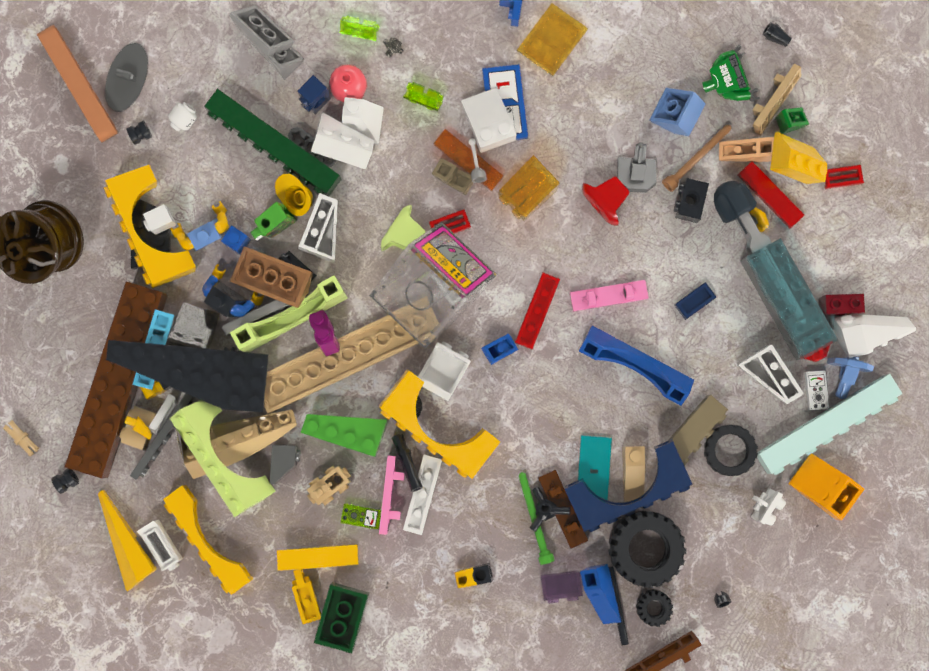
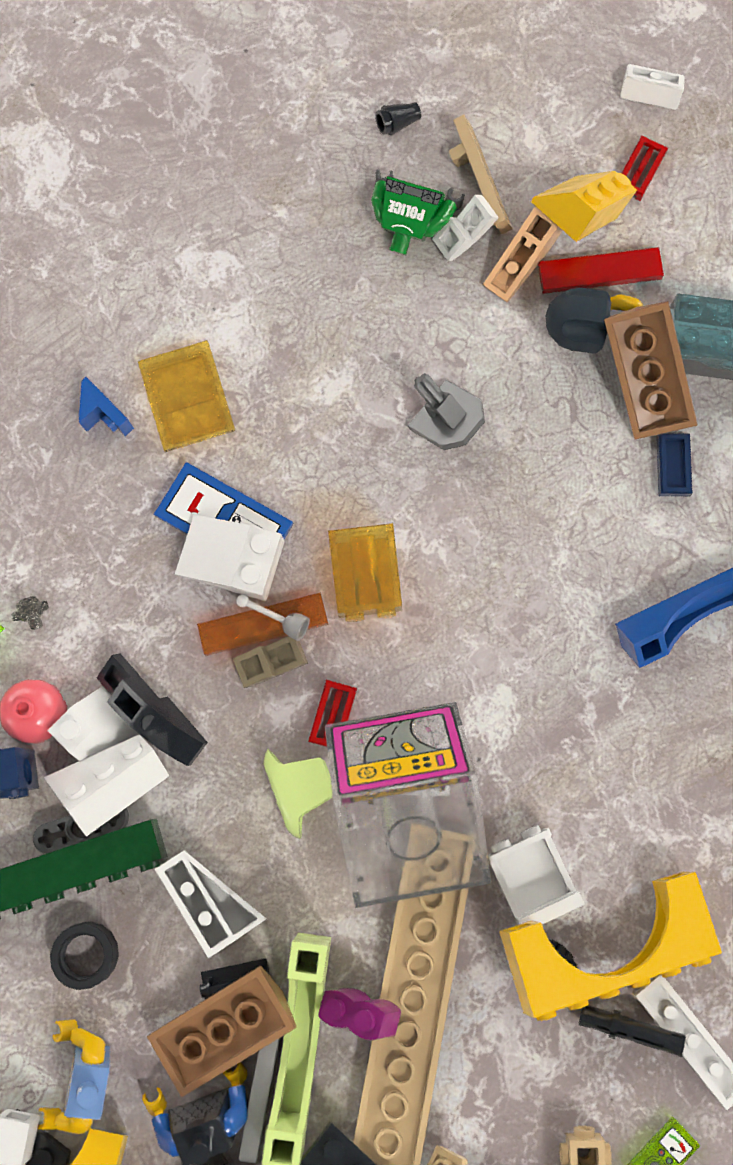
camera: 45 degrees left, 5 degrees down
(235, 240) = (128, 1042): blue brick -> none
(246, 182) = (59, 948): none -> black tyre
(277, 217) = (143, 965): bright green torso -> none
(293, 194) = (128, 906): yellow piece -> none
(350, 432) = (525, 1088): bright green wedge -> none
(386, 138) = (150, 716): none -> black slope
(386, 513) = (685, 1114): bright pink hinge -> none
(431, 100) = (119, 629): clear neon green hinge -> none
(499, 349) = (559, 775): blue slope -> none
(537, 311) = (539, 683): red tile -> none
(606, 198) = (456, 478): red piece -> none
(608, 295) = (586, 572): bright pink hinge -> none
(671, 182) = (492, 381): medium nougat piece -> none
(678, 111) = (404, 305): medium blue slope -> none
(696, 190) = (535, 356): black brick -> none
(731, 253) = (651, 370): none -> medium nougat slope
(741, 112) = (466, 228): none -> white slope
(791, 120) = (521, 178): green slope -> none
(893, 151) = (652, 86): none -> white slope

